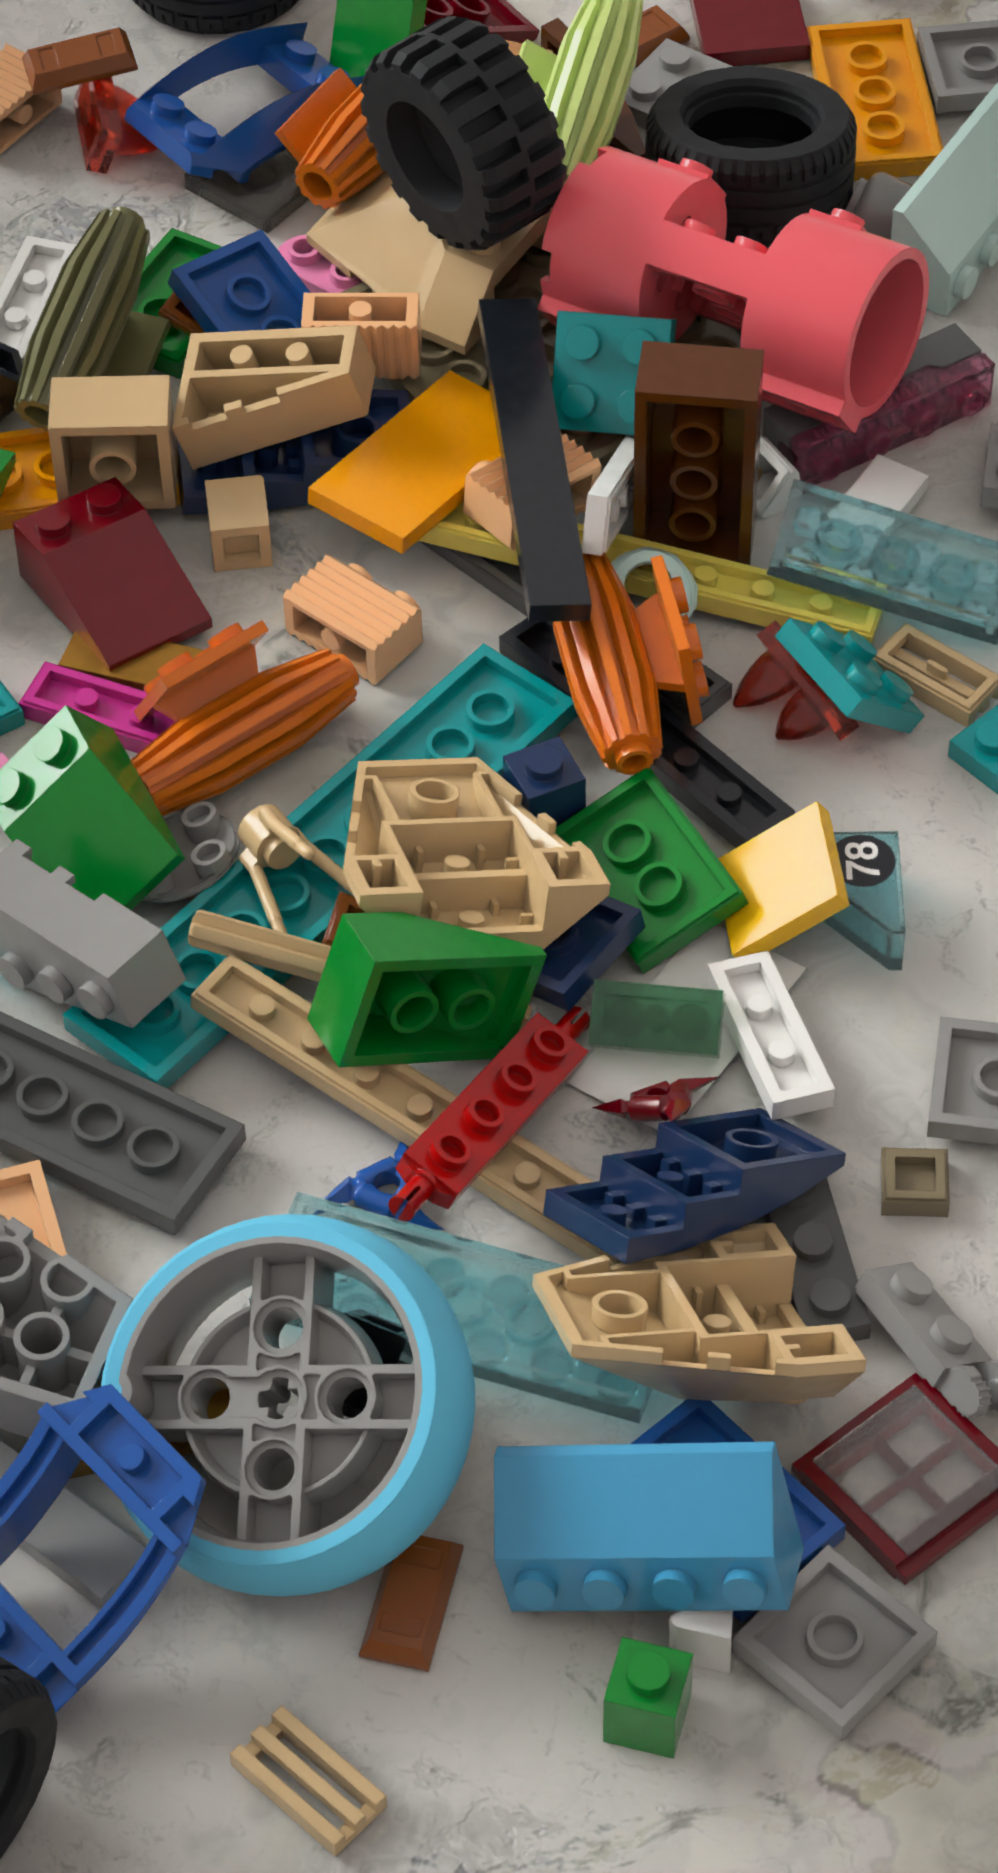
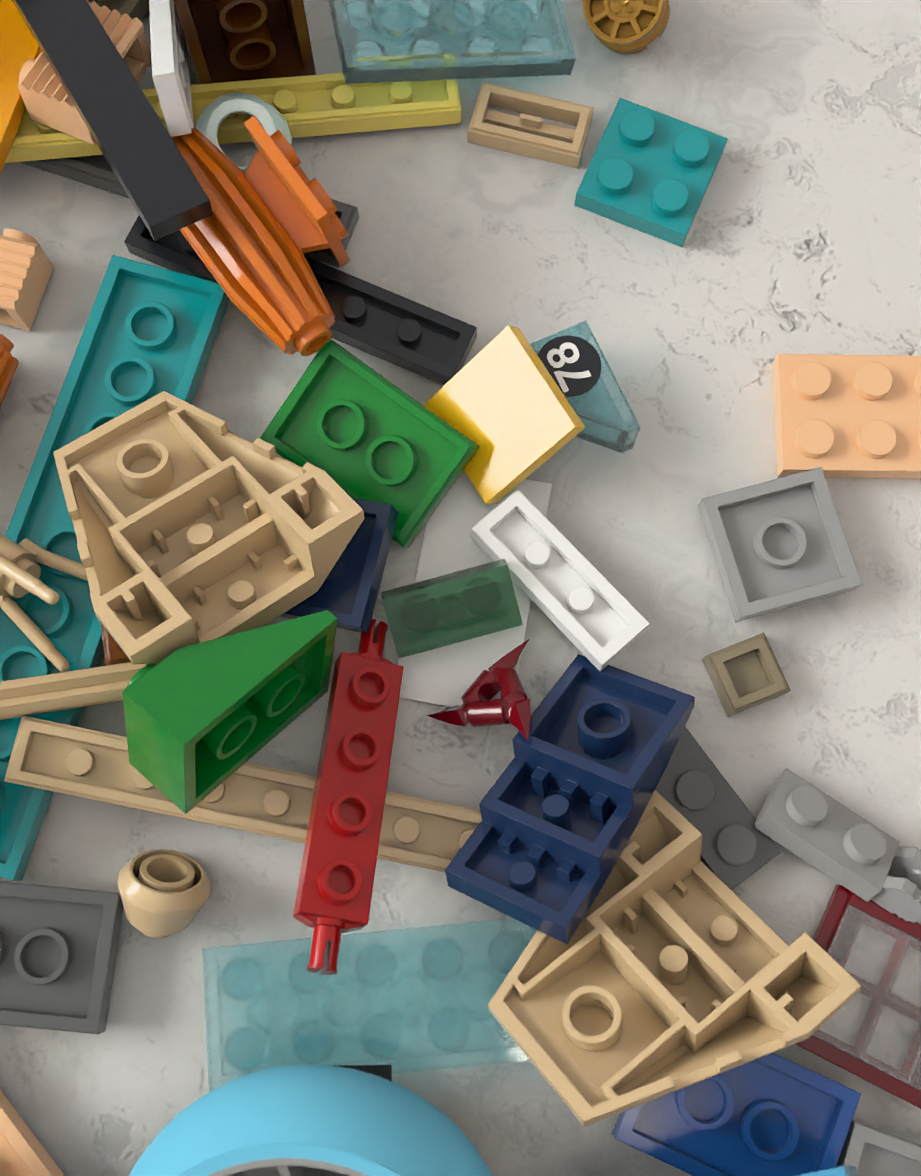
camera: 25 degrees left, 25 degrees up
(282, 1141) = (163, 891): none -> tan cone
(365, 1193) = (257, 899): blue piece -> none
(547, 779) = (239, 393): dark blue brick -> none
(776, 675) = (394, 181): clear red tile -> none
(850, 675) = (465, 164): teal plate -> none

